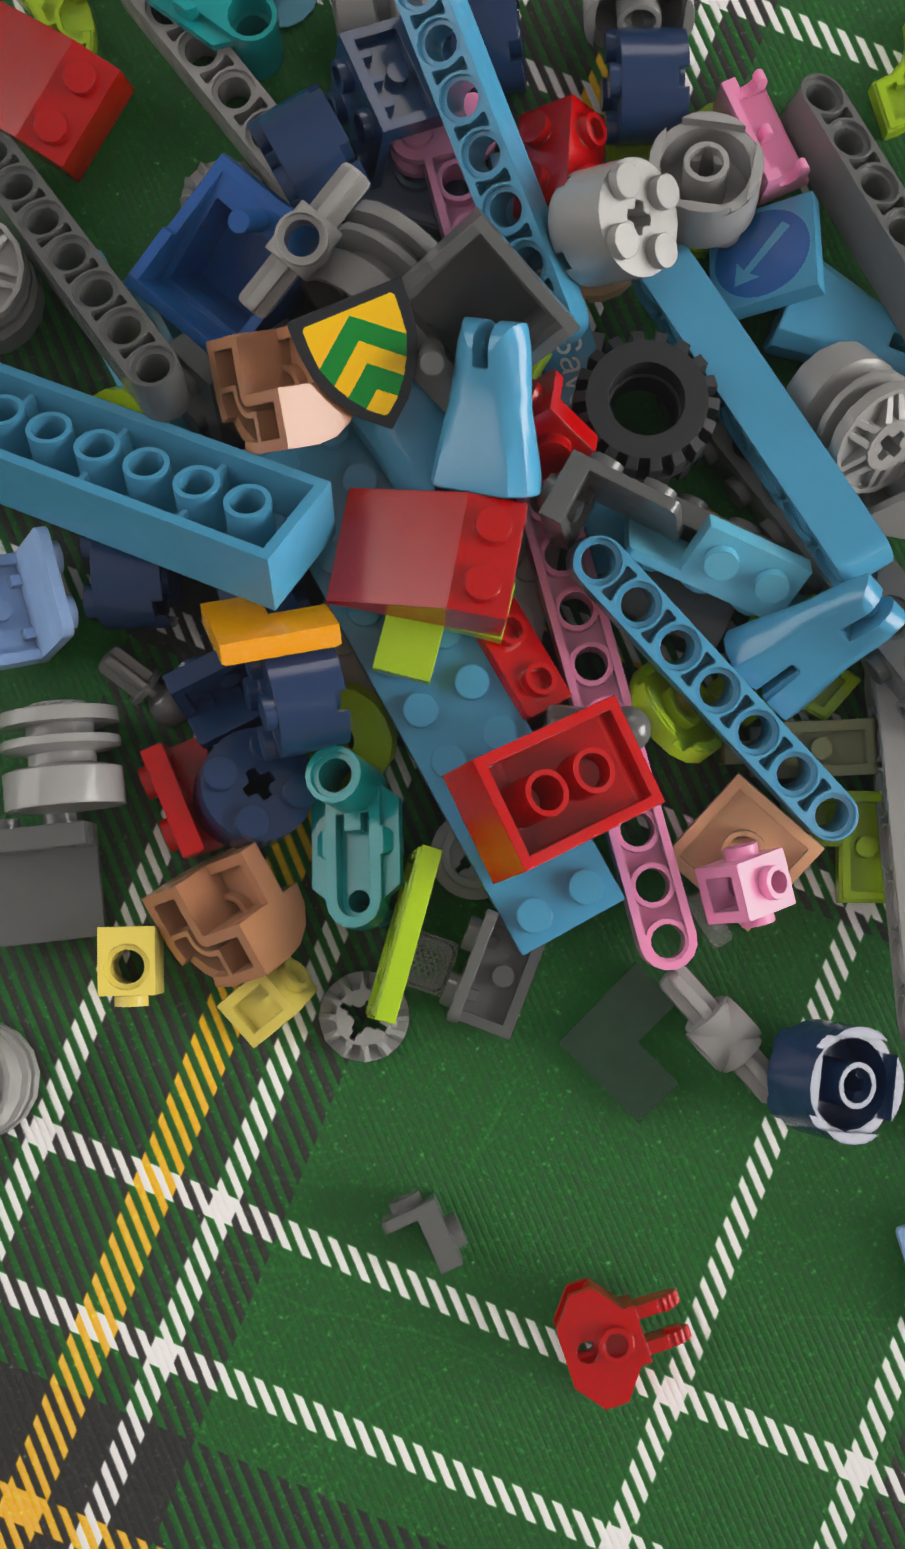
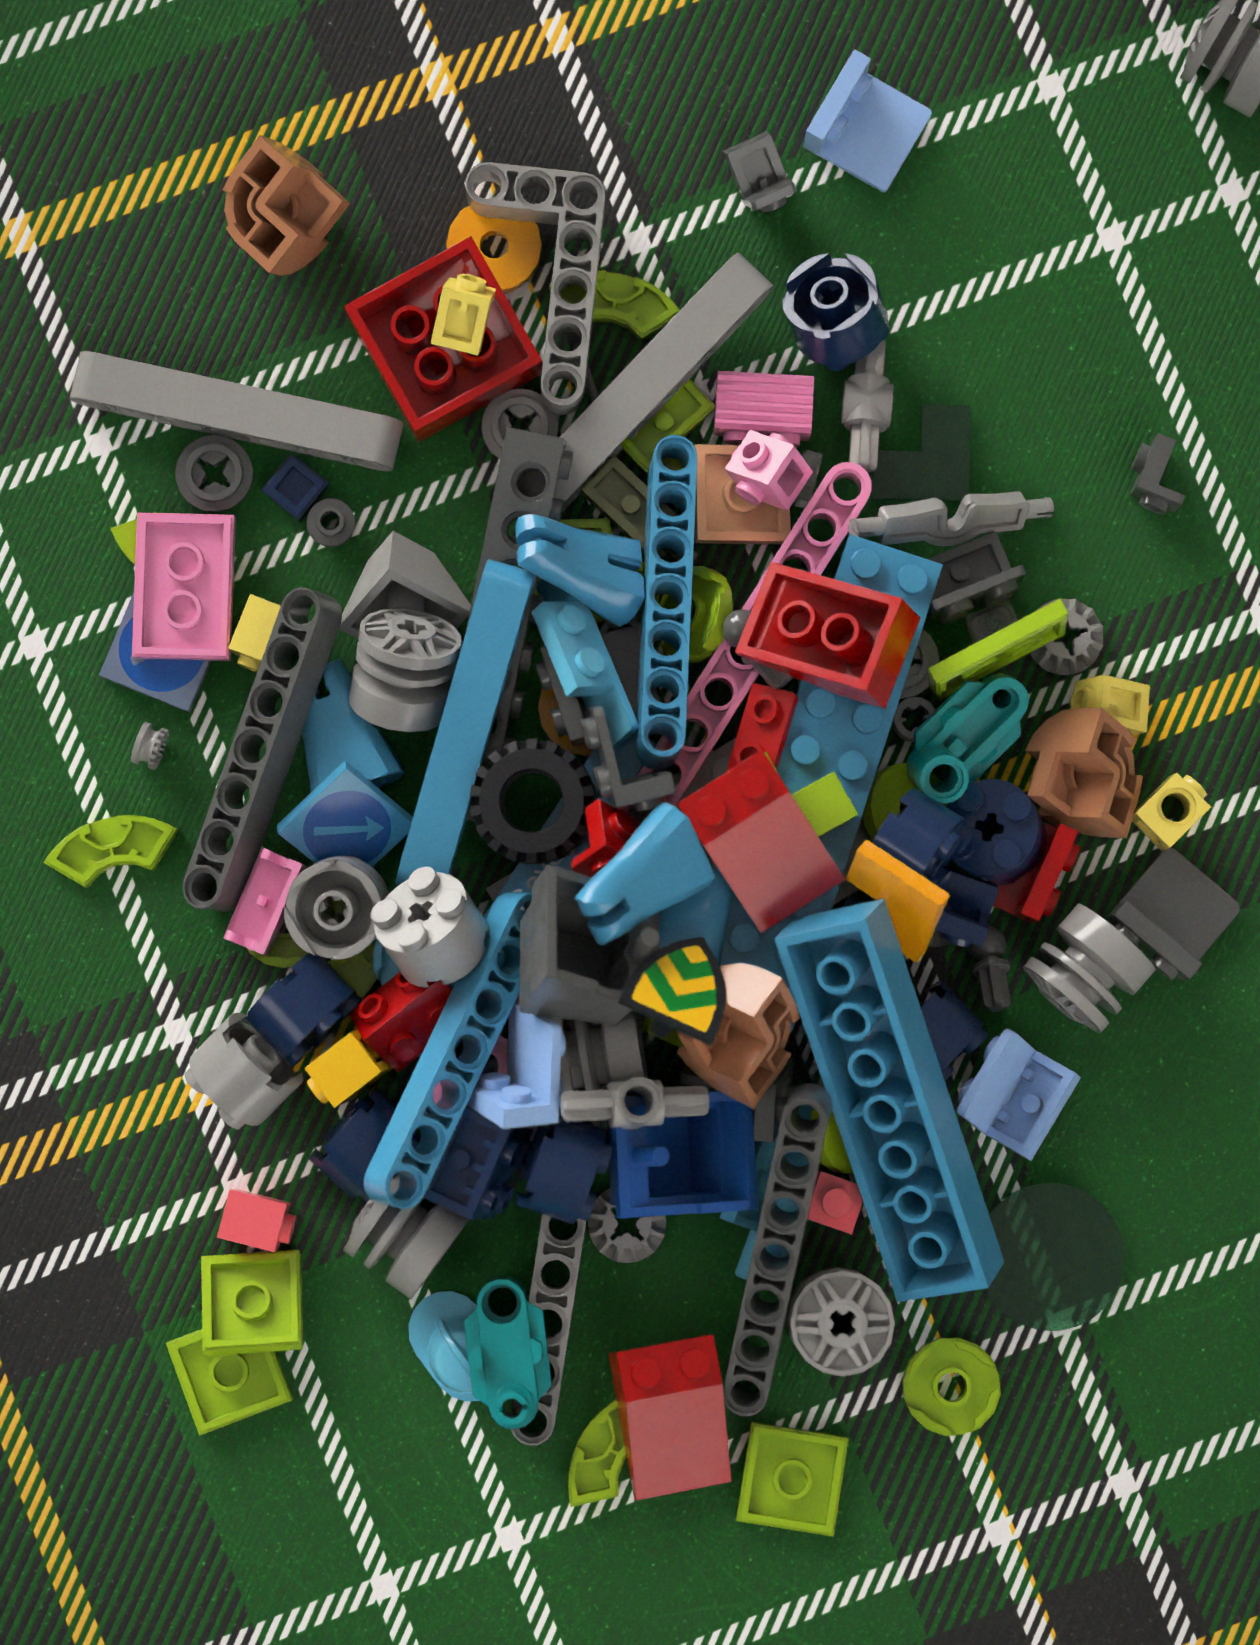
camera: 135 degrees left, 0 degrees up
(75, 364) = (835, 1202): none -> coral brick
(403, 161) = (532, 1084): none -> light blue bracket
(428, 829) = (911, 705): none -> light grey bush
(561, 59) = (345, 1070): none -> yellow brick
(569, 985) = (928, 520): none -> light grey piece
(619, 1347) = (1109, 309): red hinge -> none
(802, 941) = (763, 405): none -> bright pink brick

